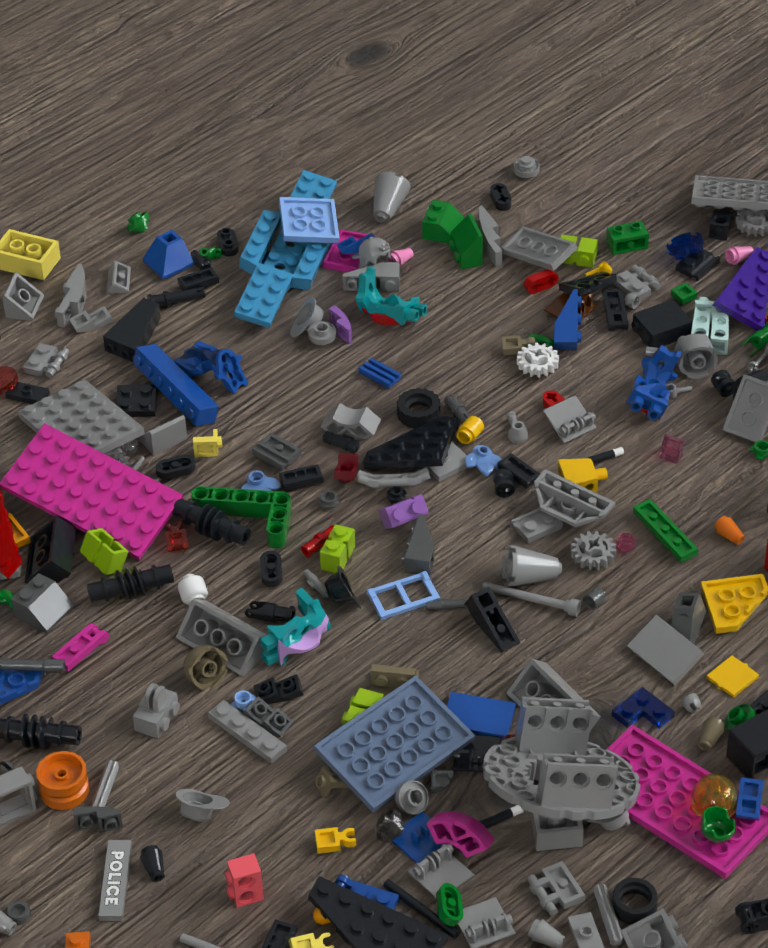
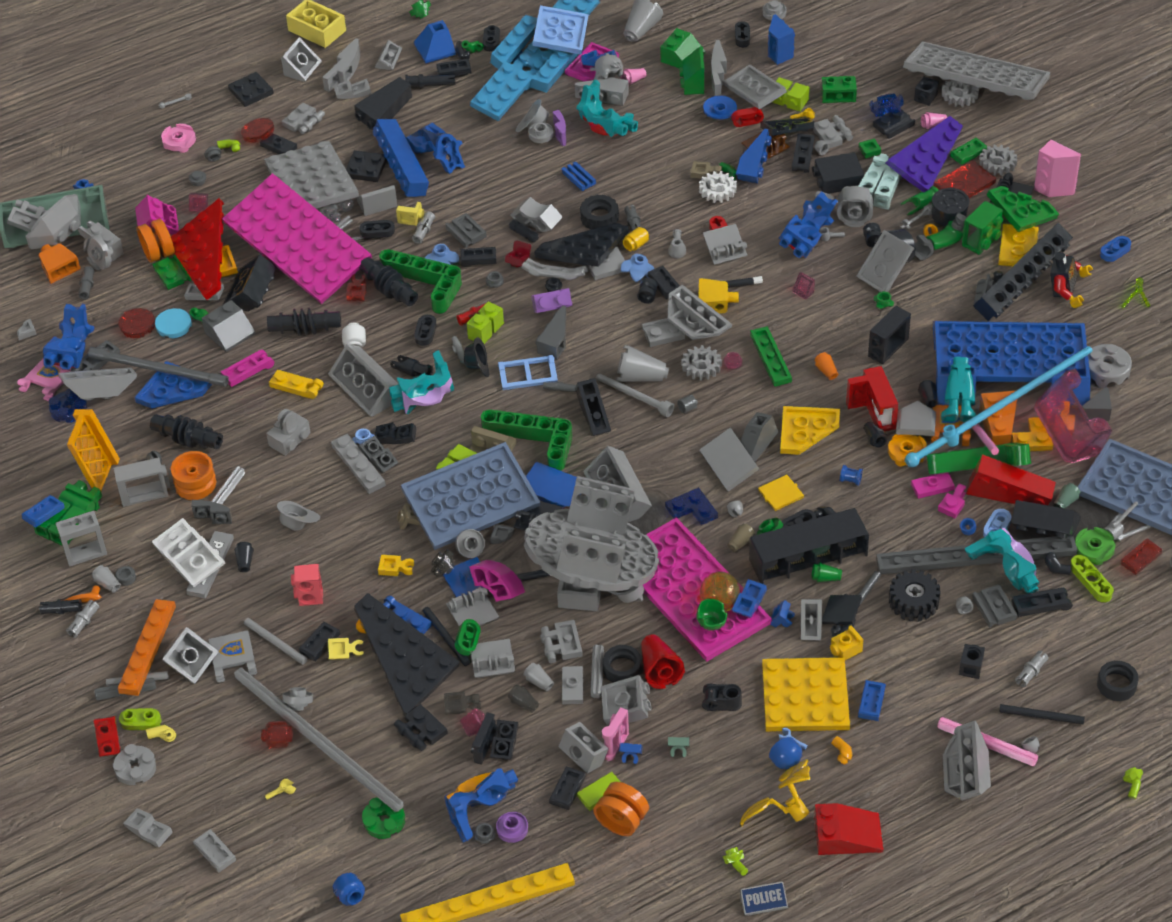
camera: 15 degrees right, 5 degrees up
(87, 871) = (188, 552): none -> white slope
(98, 550) = (291, 291): lime piece -> none
(143, 655) = (296, 384): none -> yellow plate
(205, 666) = (340, 403): dark tan cylinder -> none
(227, 456) = (419, 234): none -> light grey pin
(436, 655) = (535, 428): none -> green beam
(507, 276) = (719, 107): none -> blue dish
(548, 196) = (780, 41): none -> blue slope
(678, 889) = (660, 663): none -> red cone

